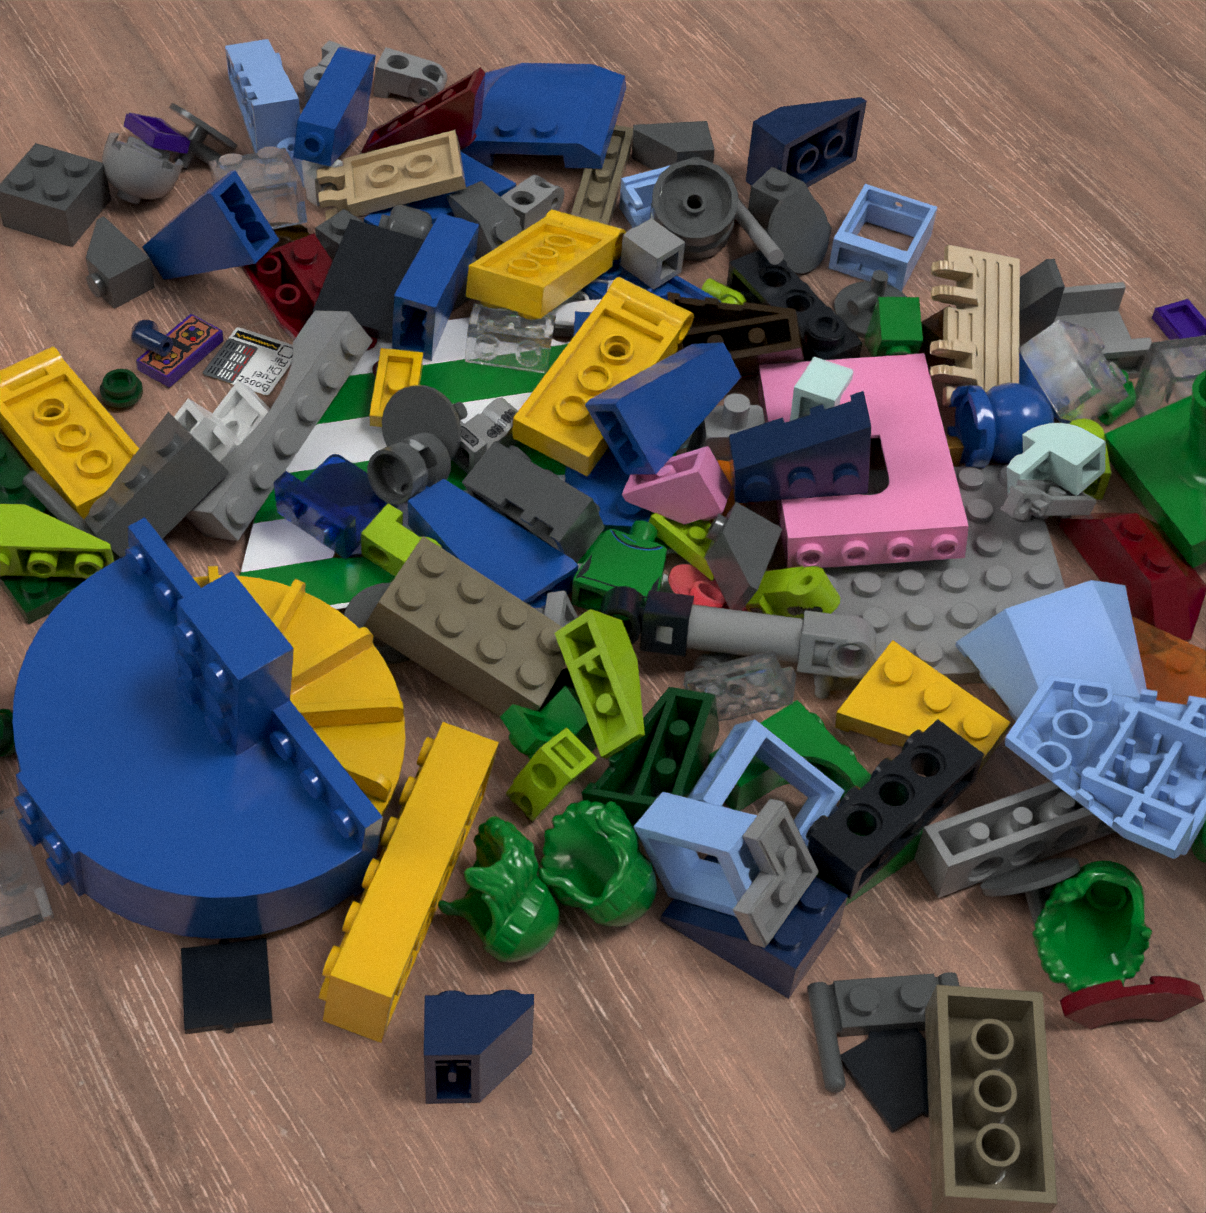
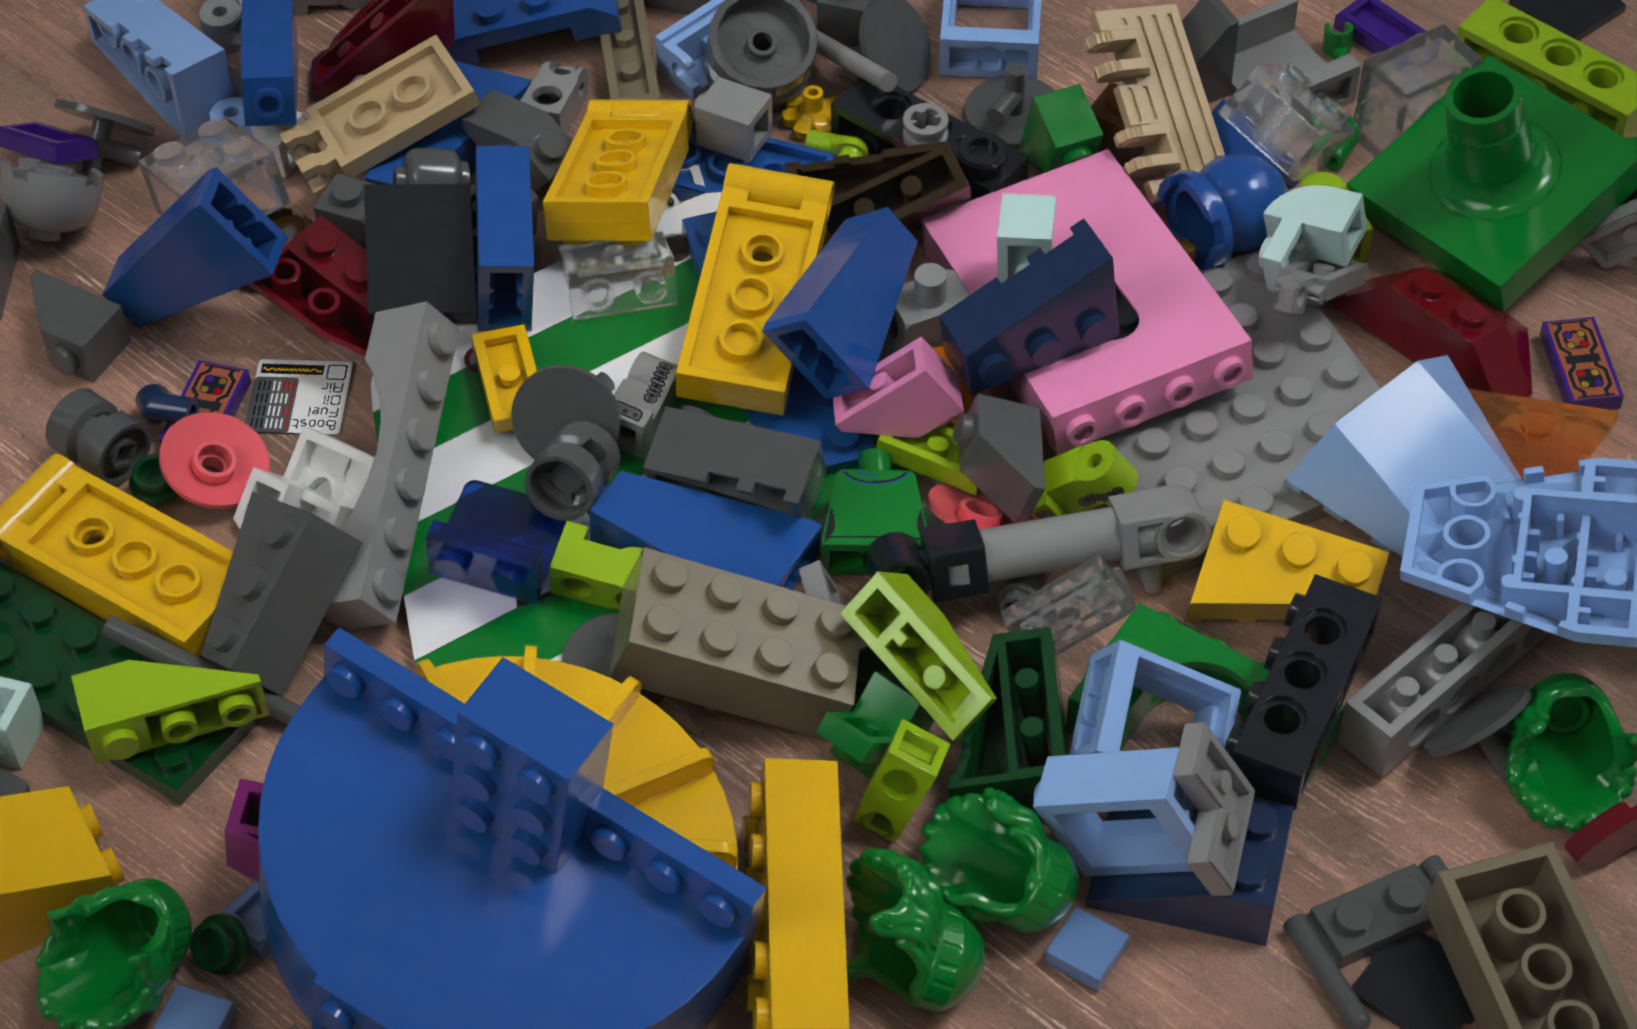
camera: 15 degrees left, 0 degrees up
(91, 343) = (97, 436): none -> dark grey wheel
(166, 371) = (215, 442): none -> coral dish
(644, 953) = (1087, 948): none -> medium blue tile
(714, 265) = (808, 112): none -> yellow plant
(793, 295) = (925, 124): none -> light grey bush
(1148, 328) = (1336, 43): none -> green hand

